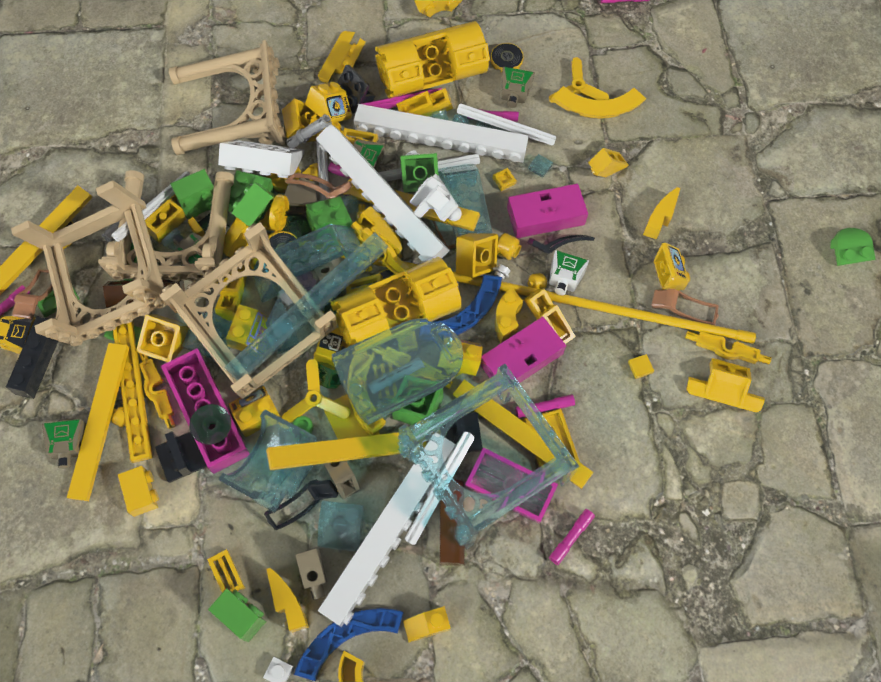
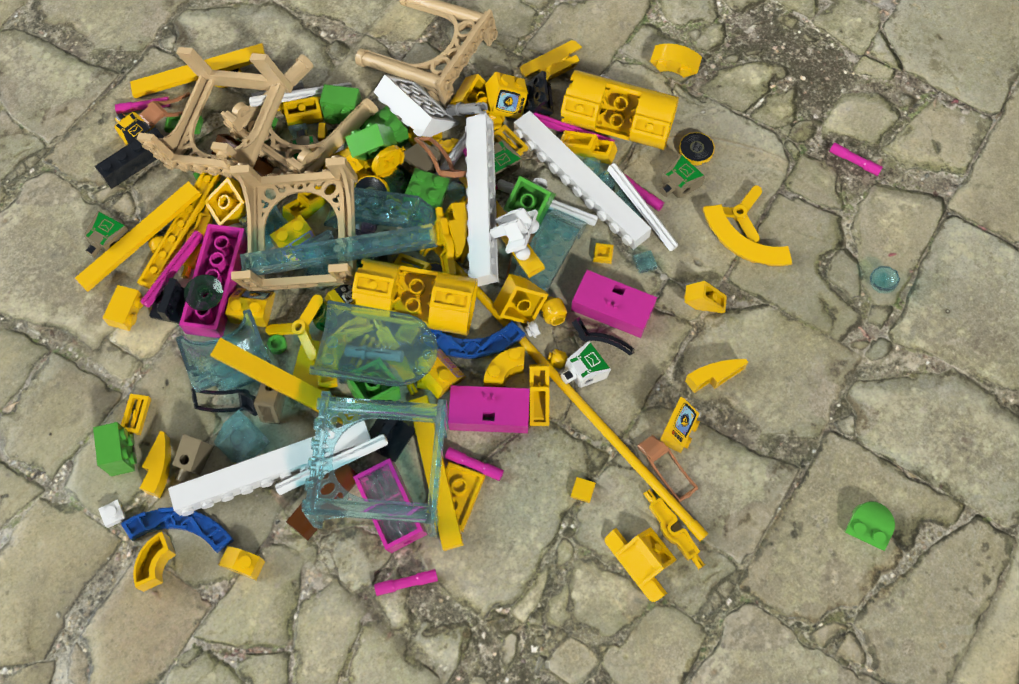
camera: 40 degrees right, 0 degrees up
(156, 452) = (172, 268): none -> dark pink axle
(717, 69) = (884, 279): none -> clear light blue hair

